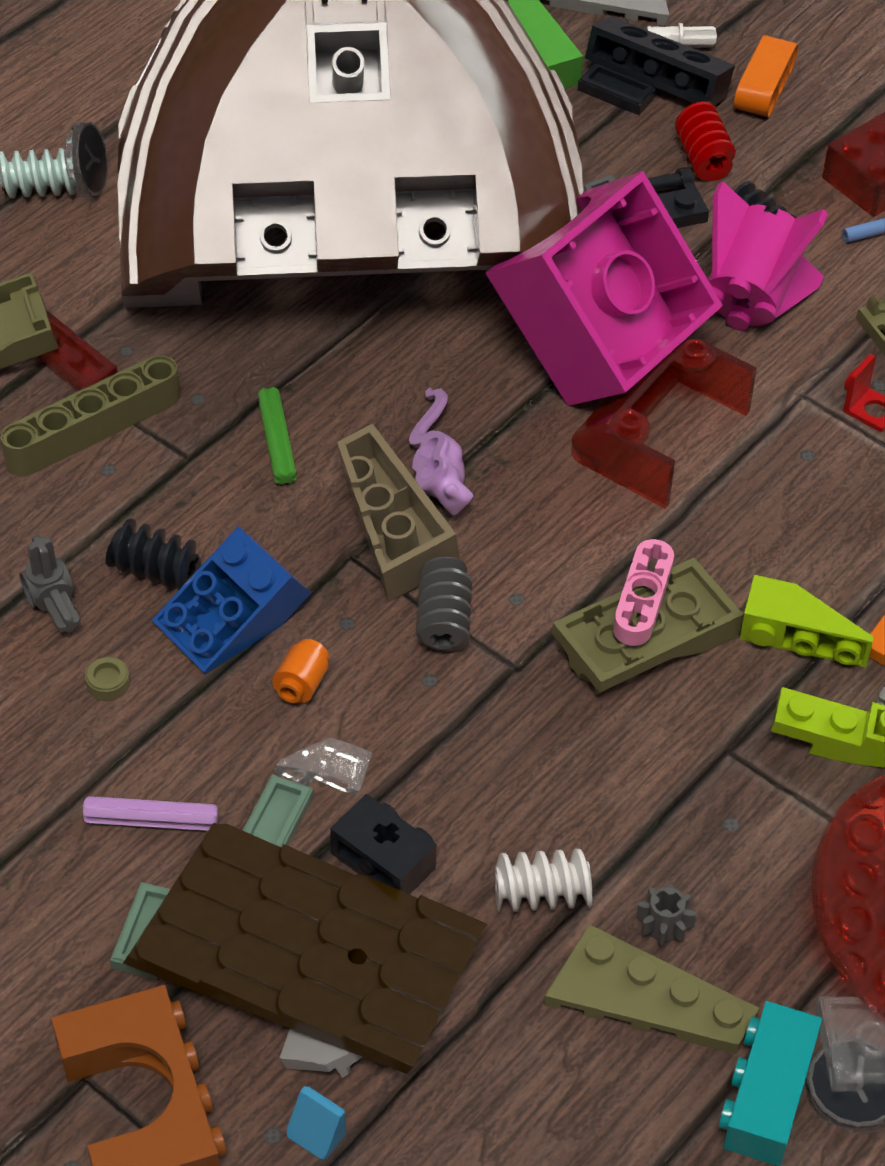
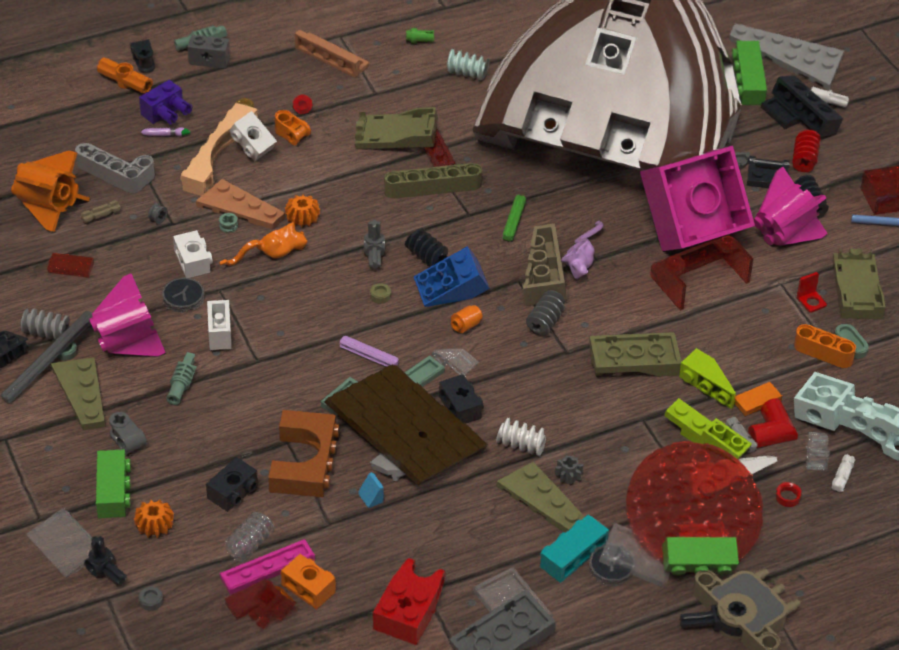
camera: 25 degrees right, 5 degrees down
(86, 159) = (489, 62): tile -> none
(650, 606) = (635, 344): bright pink beam -> none
(765, 76) = (860, 129): orange beam -> none

